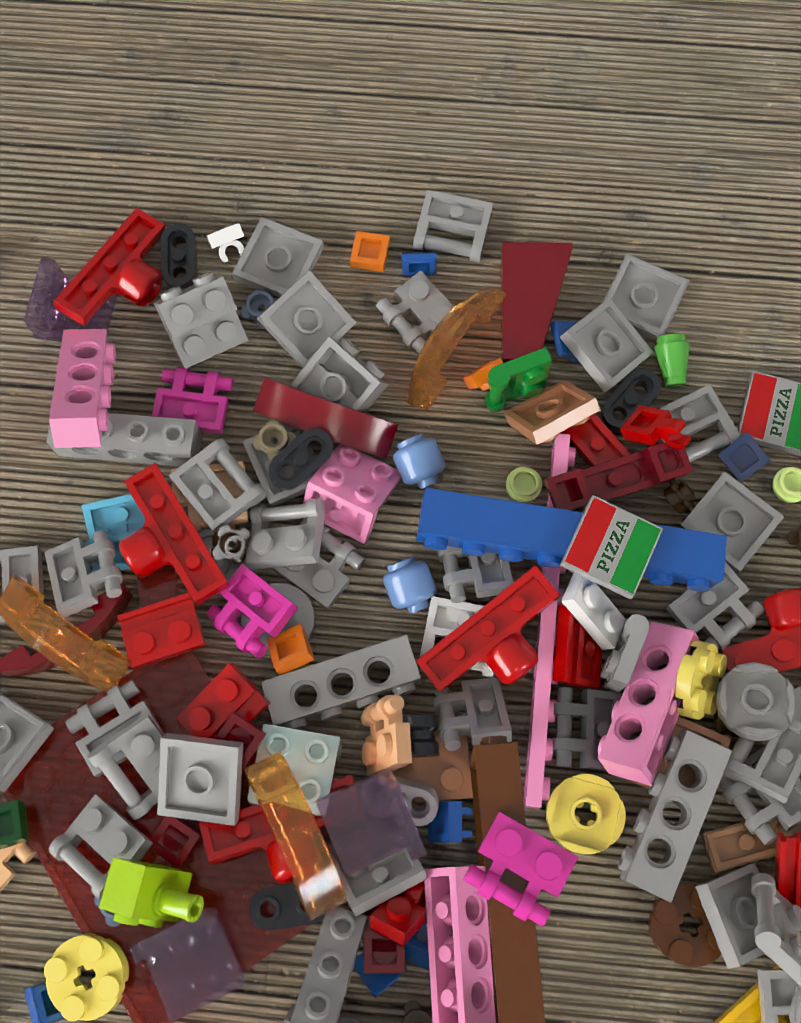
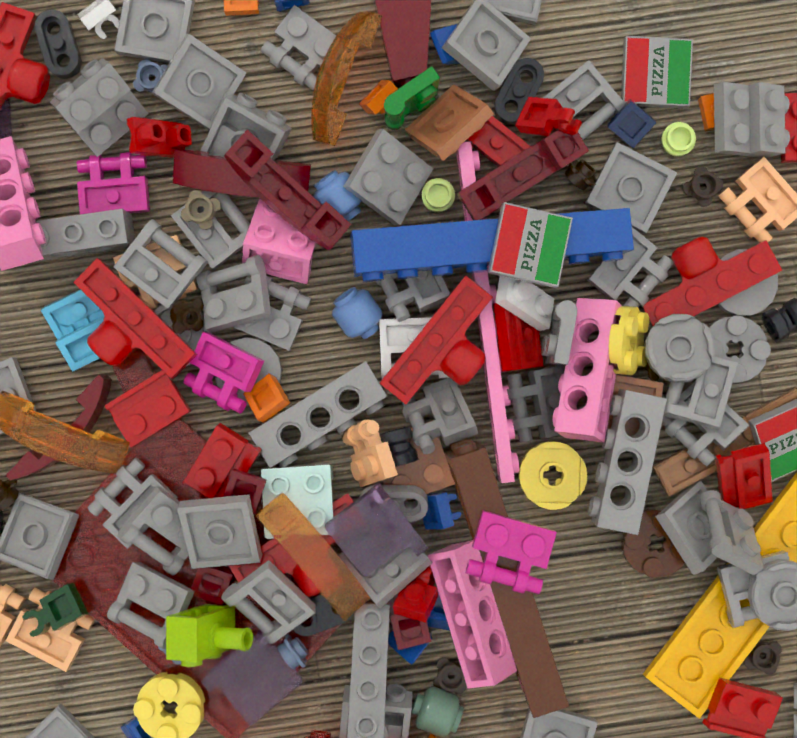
camera: 25 degrees left, 15 degrees up
(71, 574) = (54, 382): light grey plate -> none
(242, 870) = (276, 595): none -> light grey plate
(243, 944) = (293, 652): none -> sand blue plate
(249, 362) = (157, 137): none -> red hips
(298, 457) = (228, 221): black plate -> none
(363, 442) = (284, 194): none -> dark red slope
(476, 451) = (388, 177): none -> light grey plate
(672, 357) = (550, 41): bright green cone -> none

